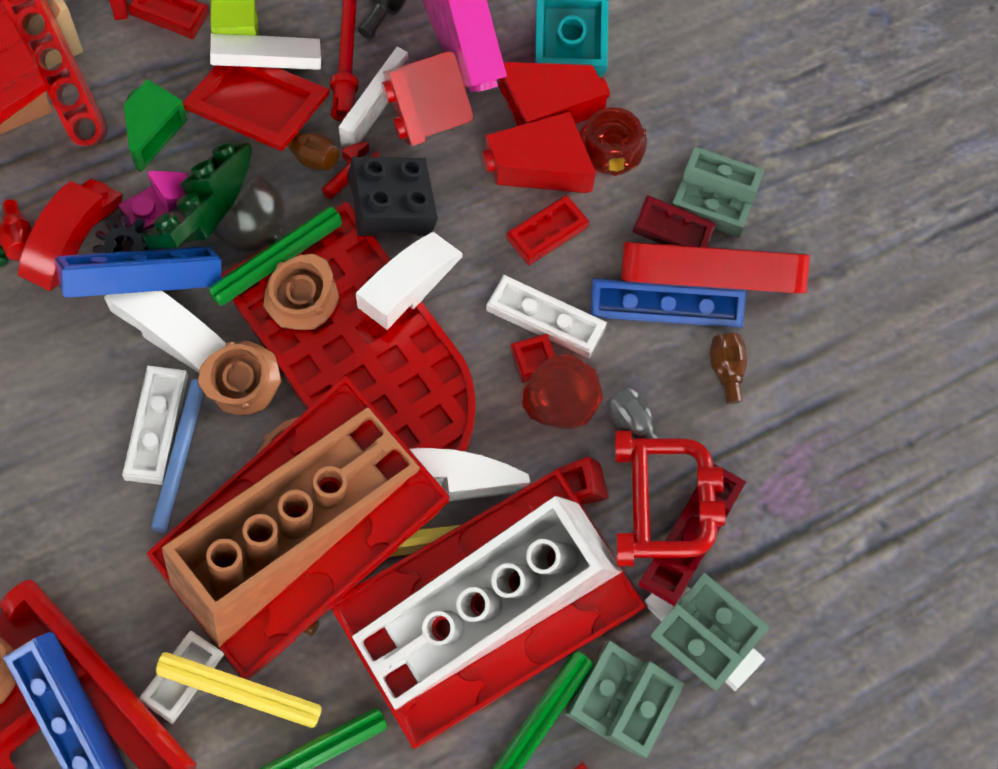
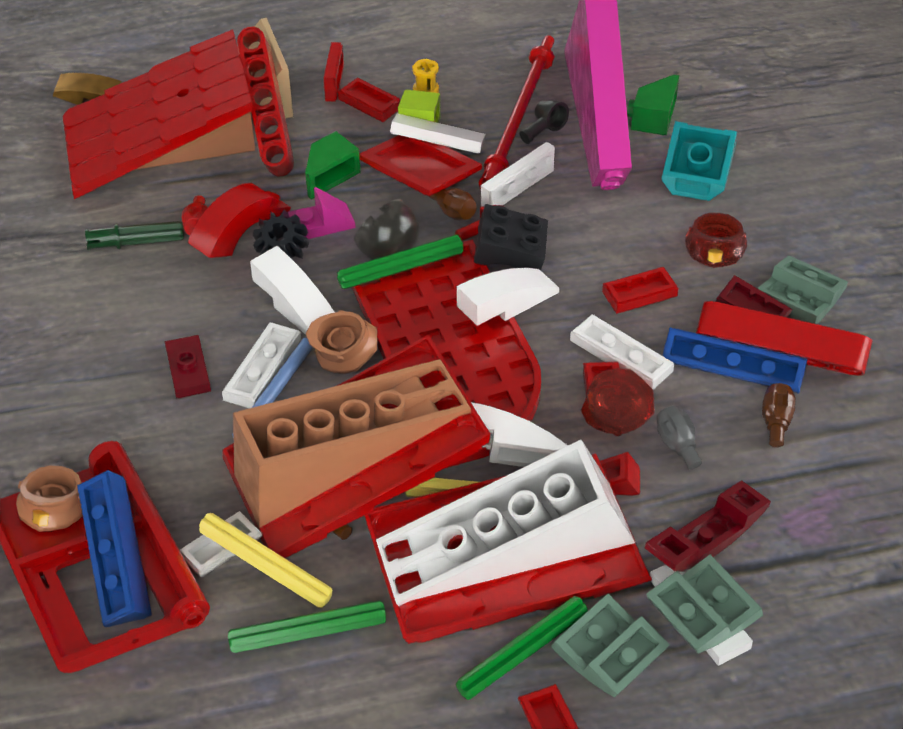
camera: 20 degrees right, 20 degrees down
(70, 446) = (187, 366): none -> dark red plate
(137, 271) = (283, 247): blue slope -> none
(207, 198) = (350, 215): dark green slope -> none
(301, 293) = (413, 288): nougat hat -> none
(427, 97) = (561, 179): bracket -> none
(540, 156) = (647, 237): red slope -> none
(548, 90) = (669, 198): red slope -> none
(708, 482) = (671, 458): red bar -> none

